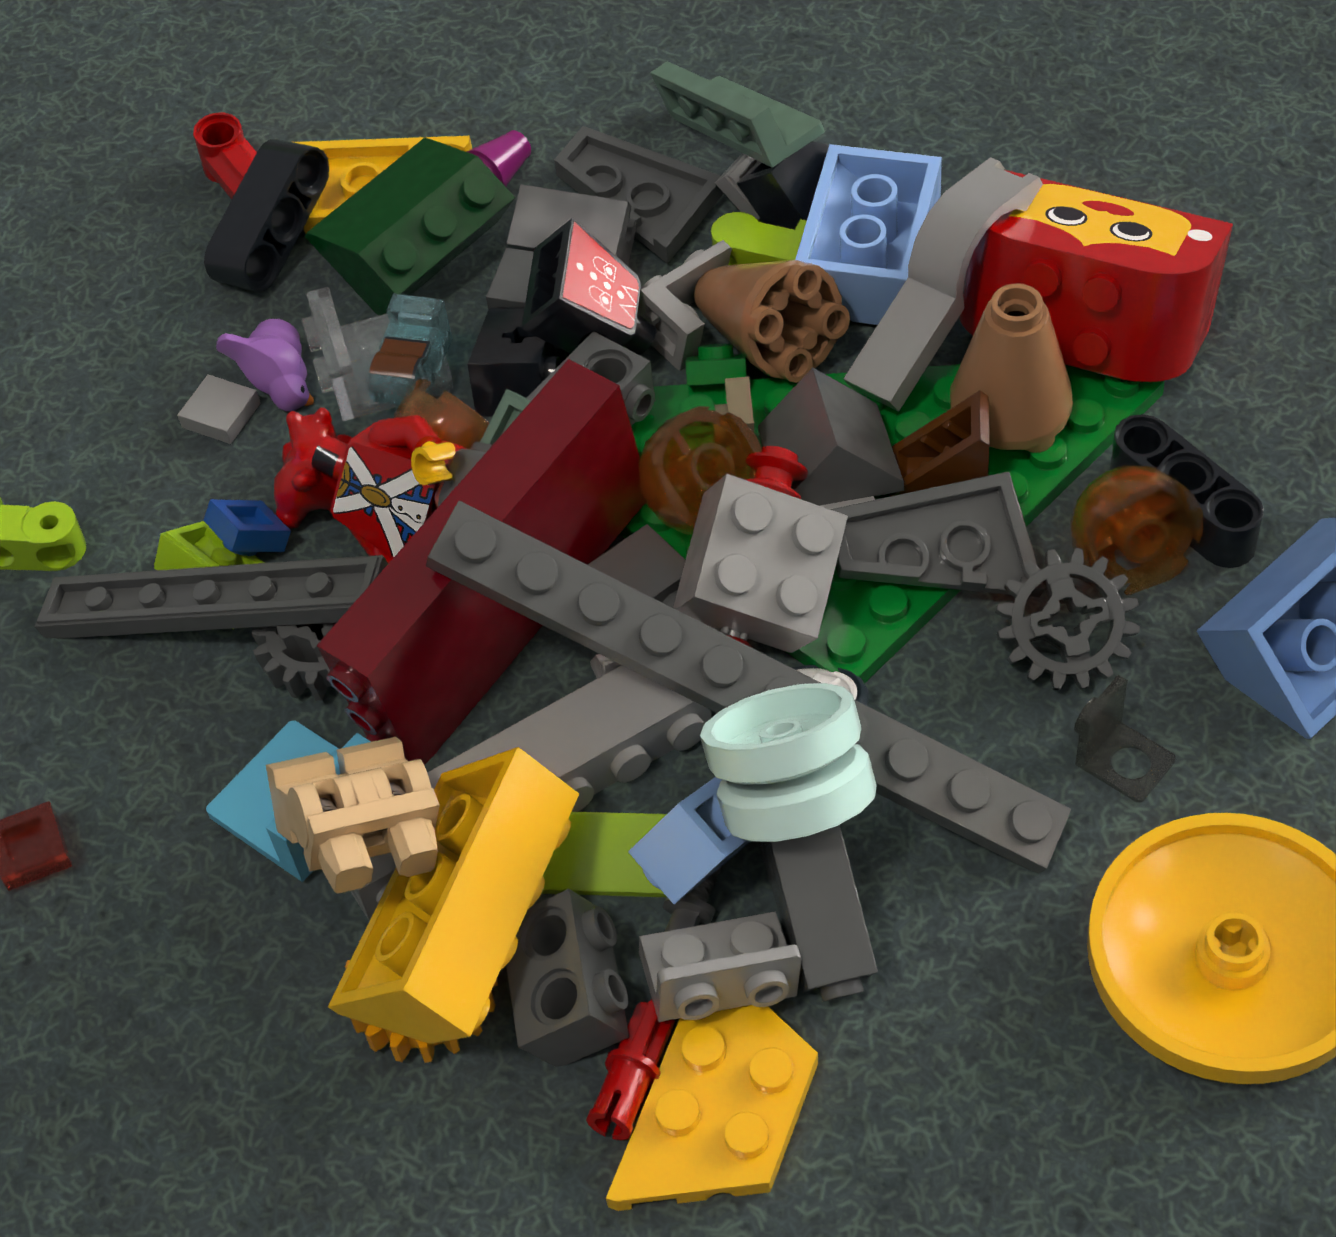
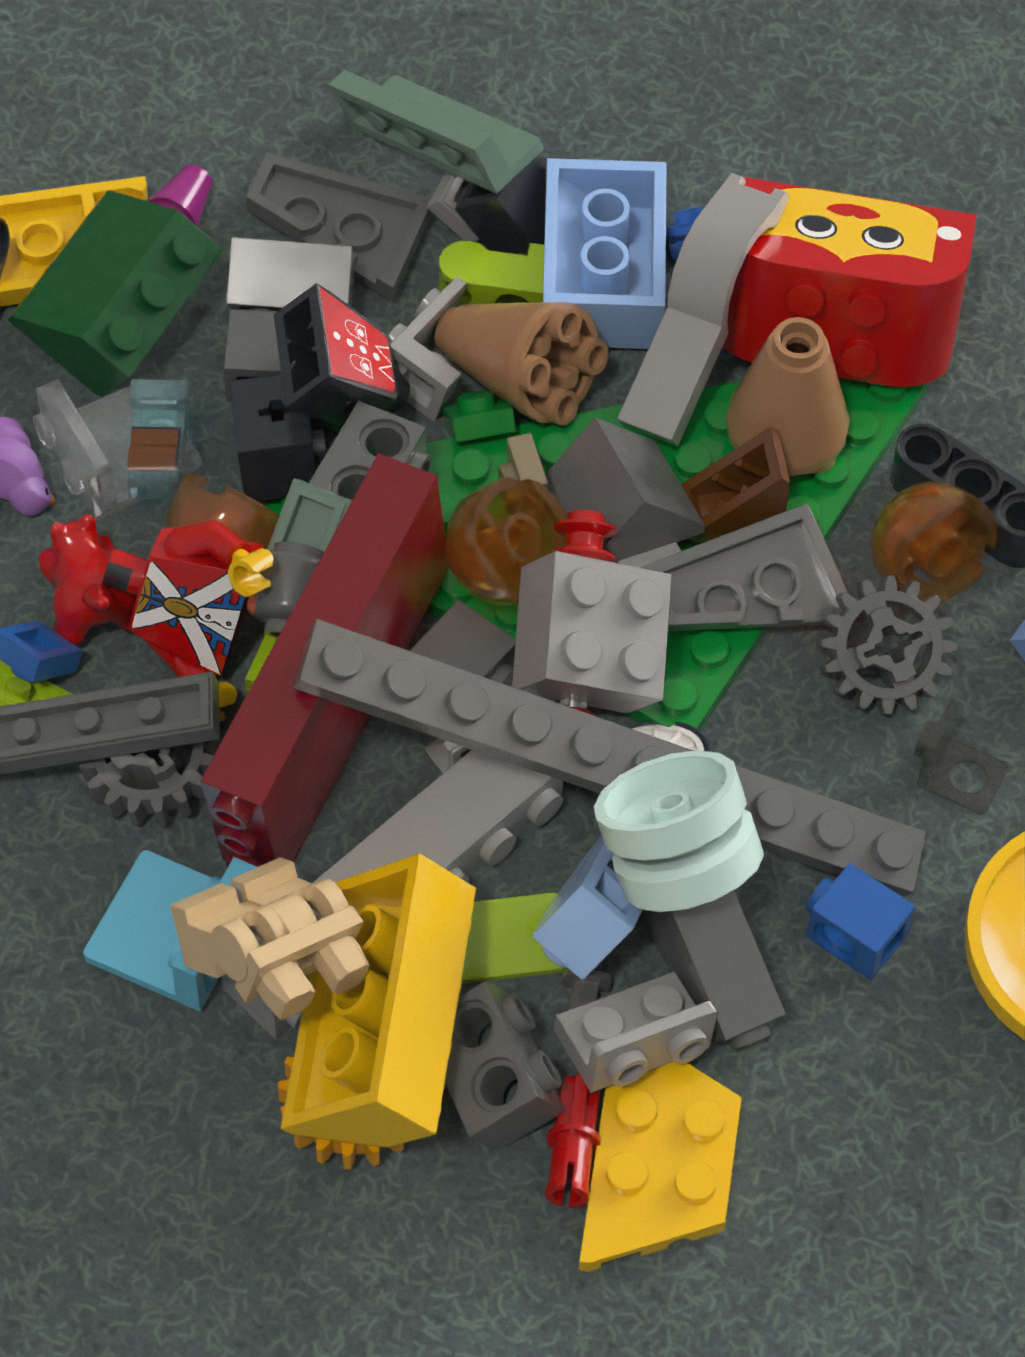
camera: 20 degrees left, 5 degrees up
(981, 888) = (858, 920): none -> blue brick

